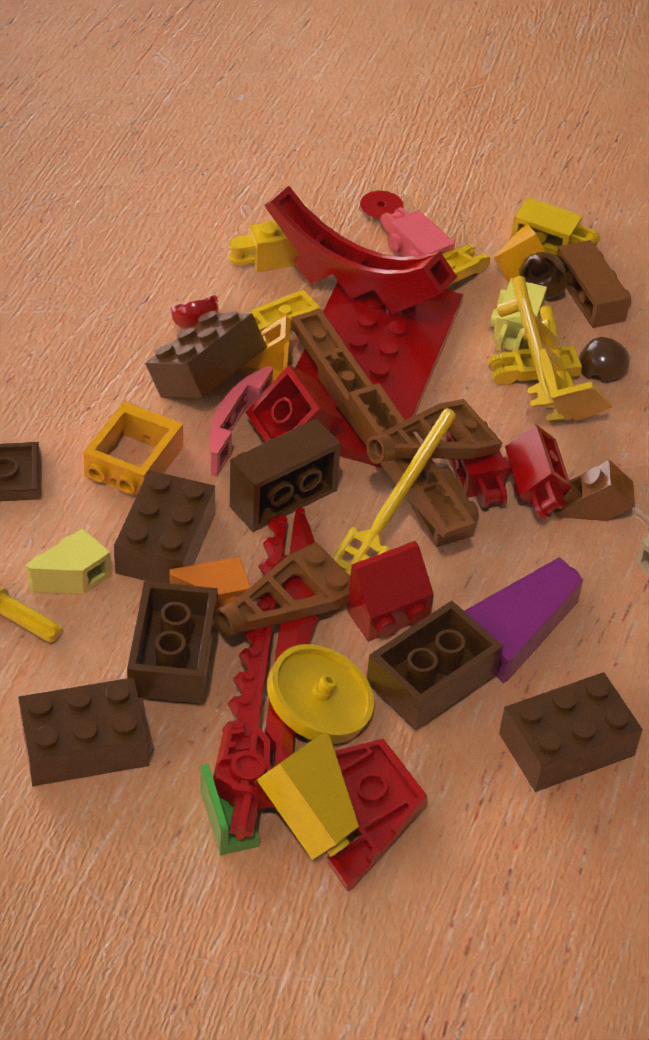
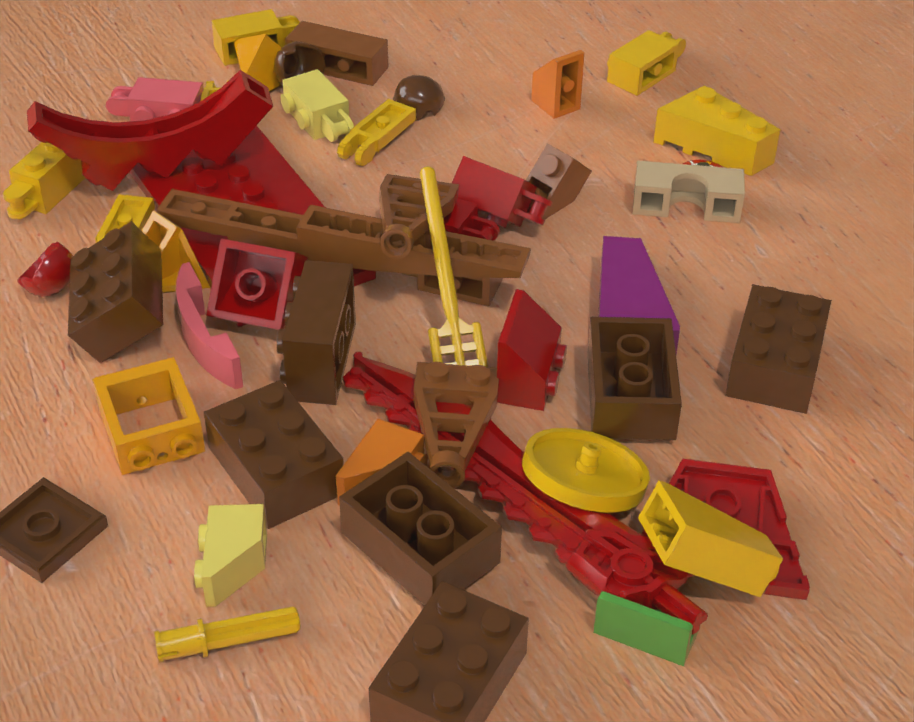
camera: 45 degrees left, 5 degrees down
(379, 203) = (87, 98): red piece -> none
(555, 386) = (430, 121): yellow hand -> none

